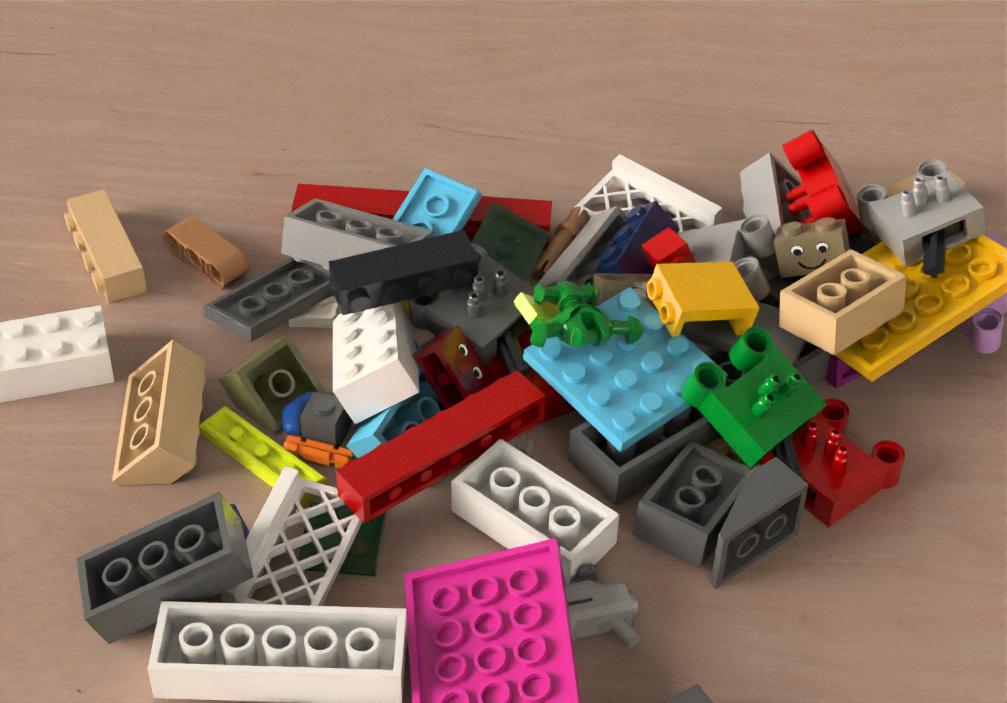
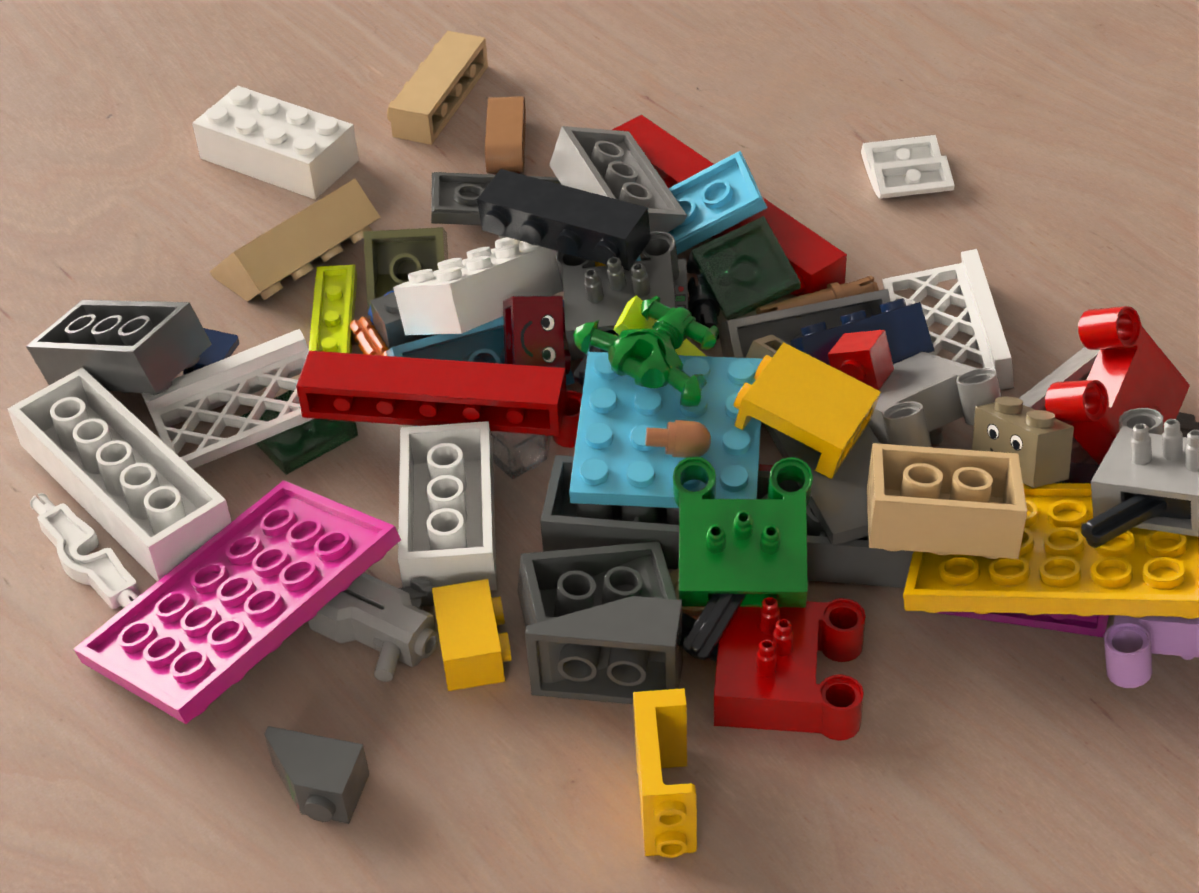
camera: 50 degrees right, 0 degrees up
(494, 129) = (907, 167): none -> white slope
(655, 578) = (469, 634): none -> yellow brick
(658, 363) = (680, 438): none -> nougat cylinder
(866, 569) = (661, 742): none -> yellow panel

